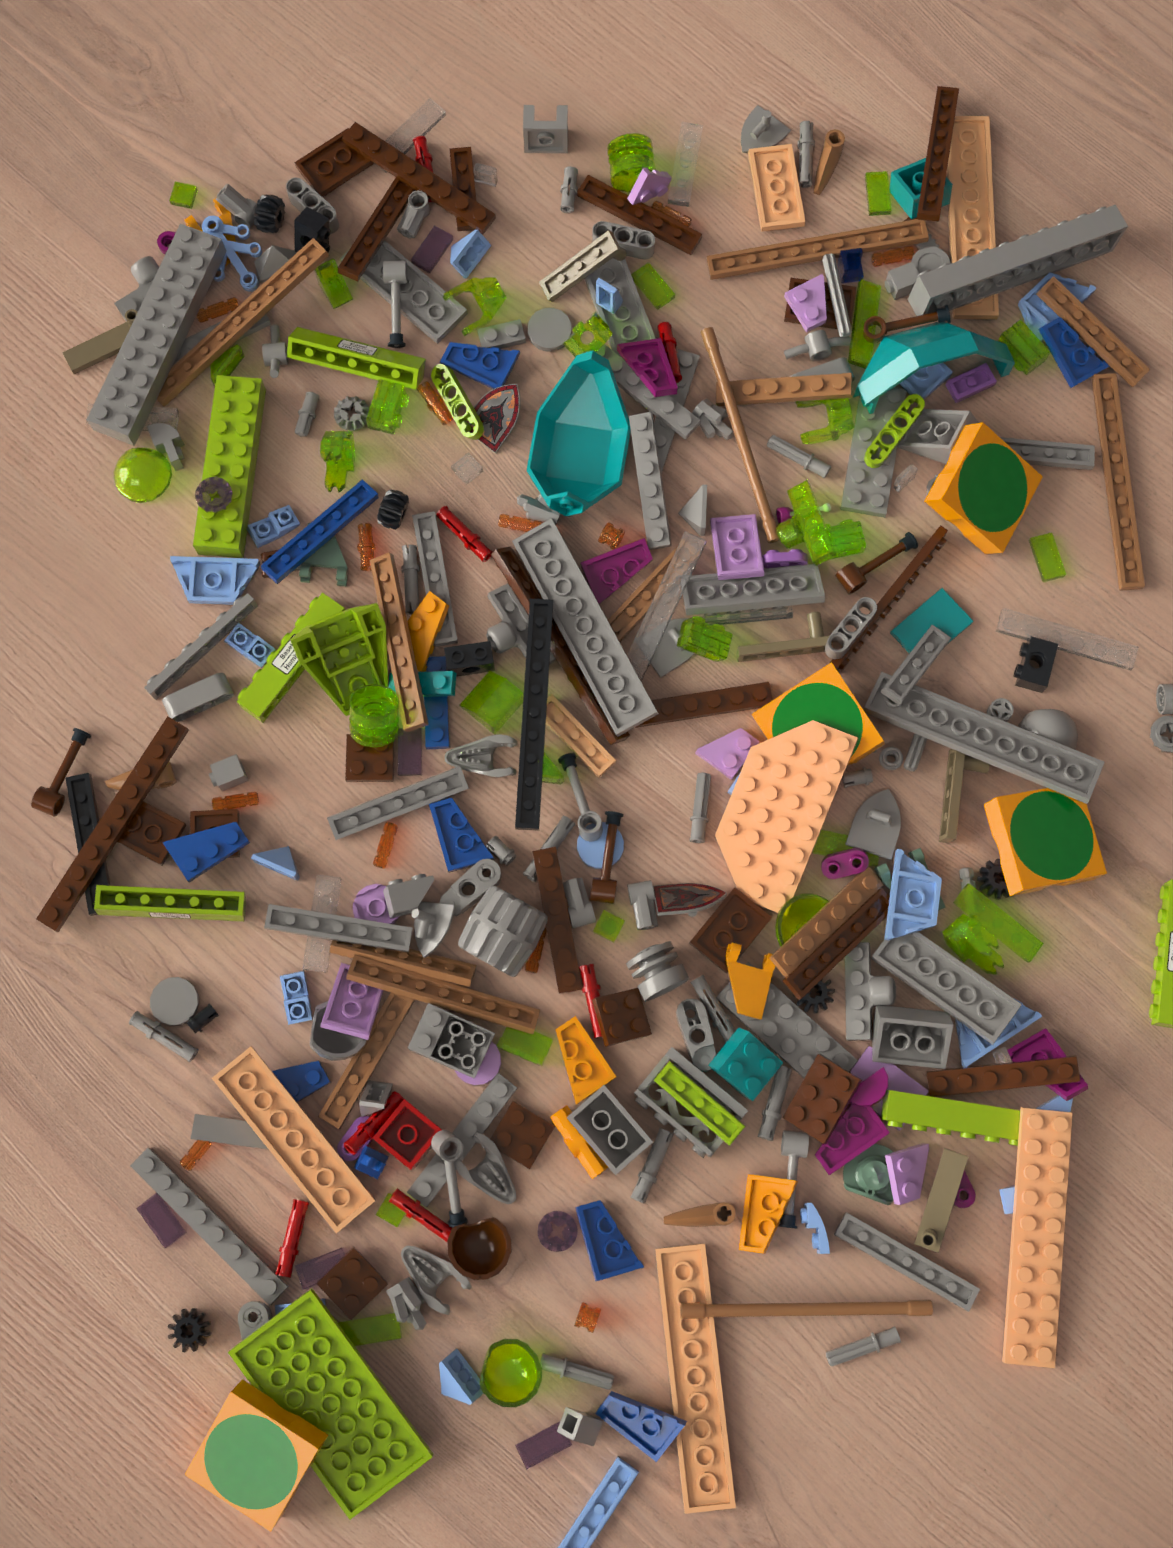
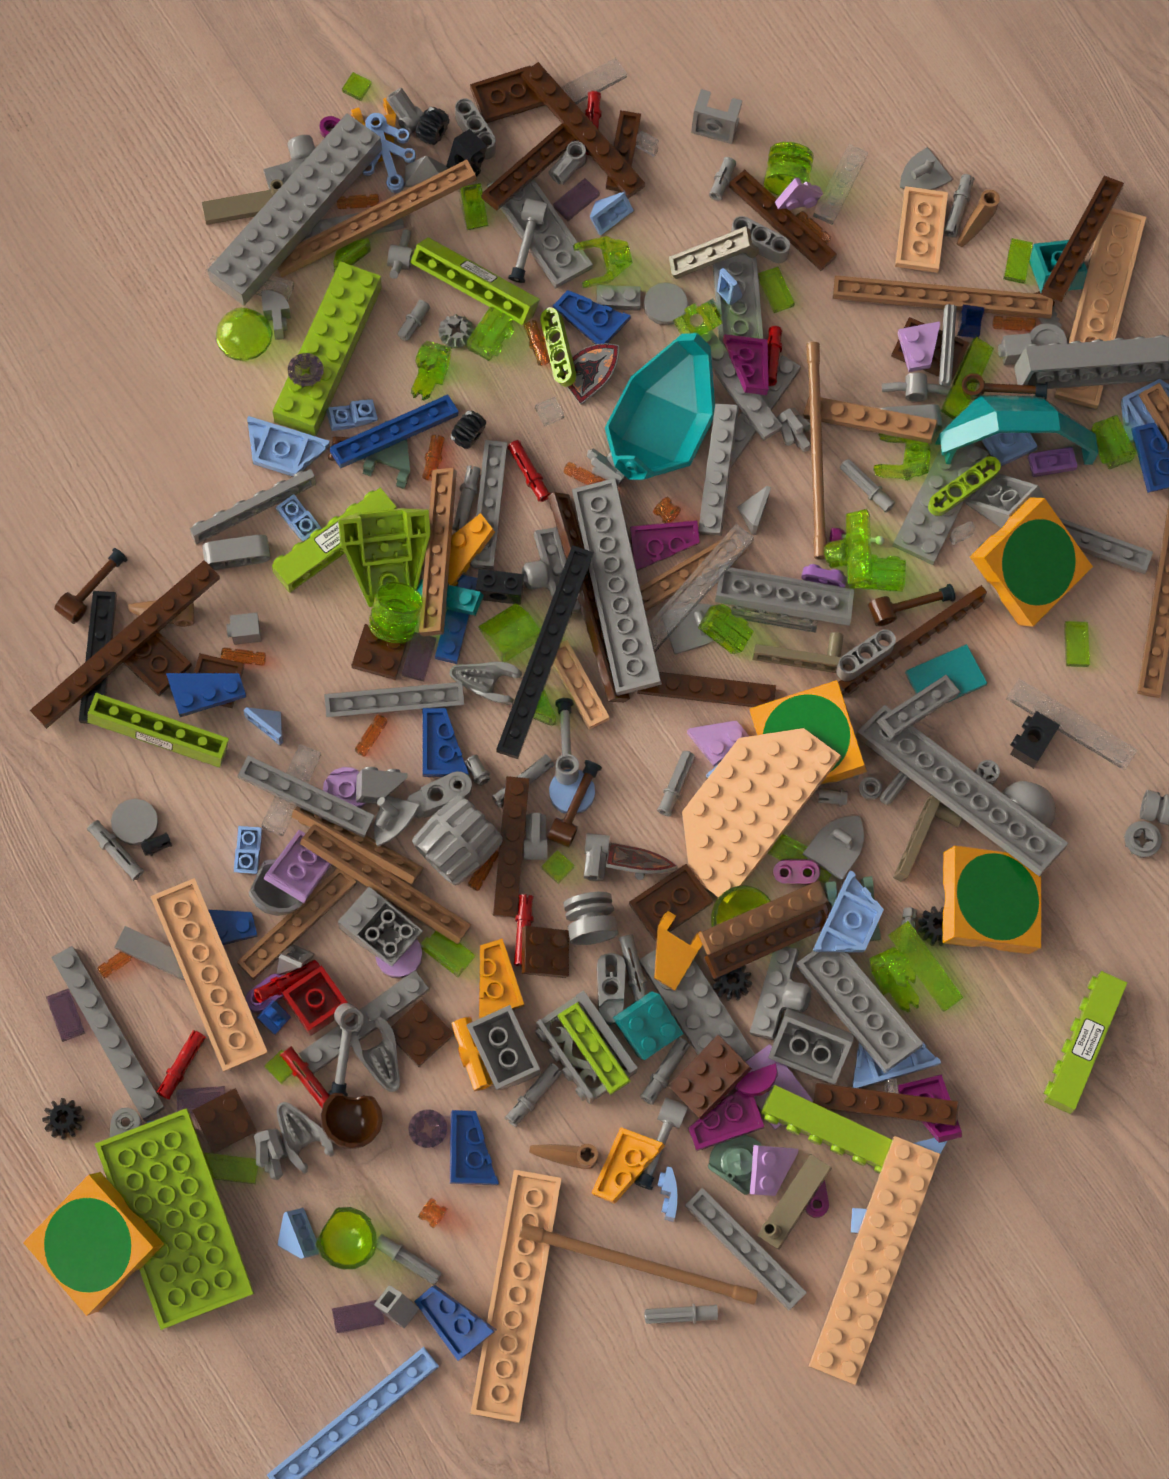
camera: 10 degrees right, 5 degrees down
(737, 547) = (782, 553): lavender tile -> none

